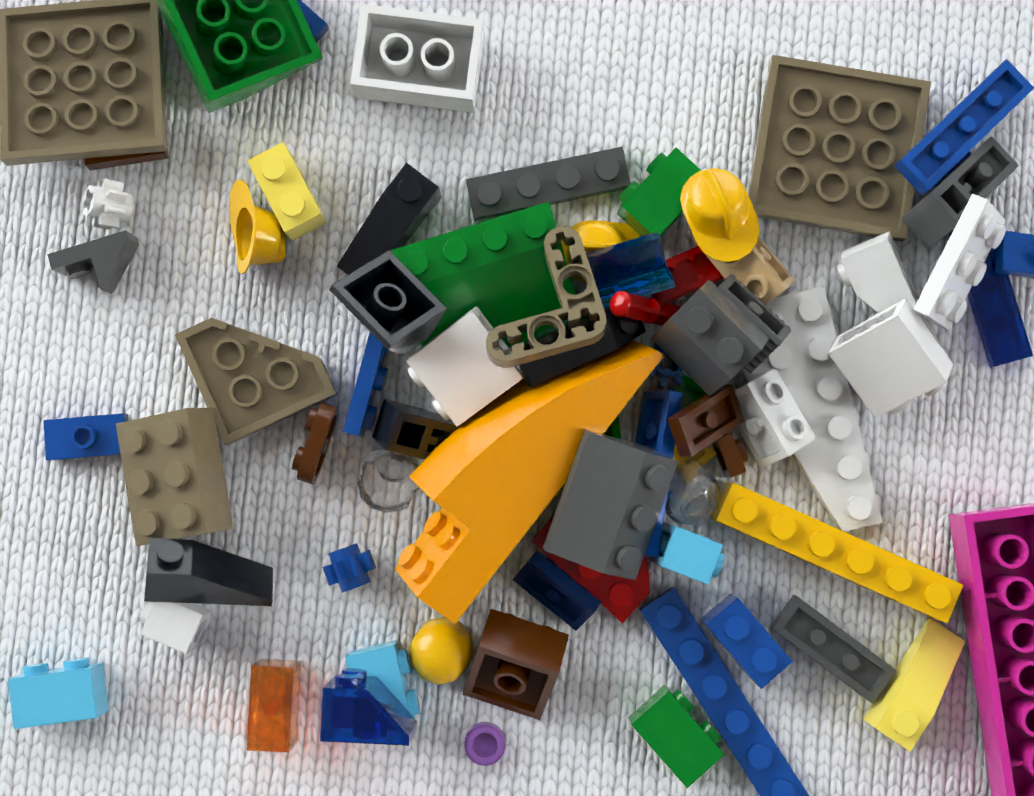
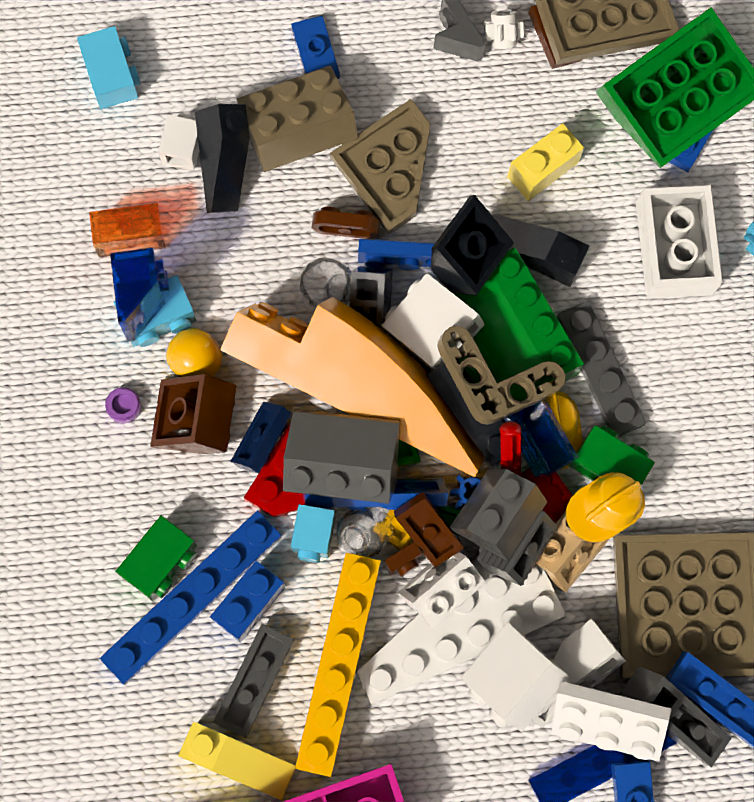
camera: 70 degrees right, 10 degrees down
(254, 230) = (507, 144): yellow piece -> none
(349, 568) = (249, 267): blue gear -> none

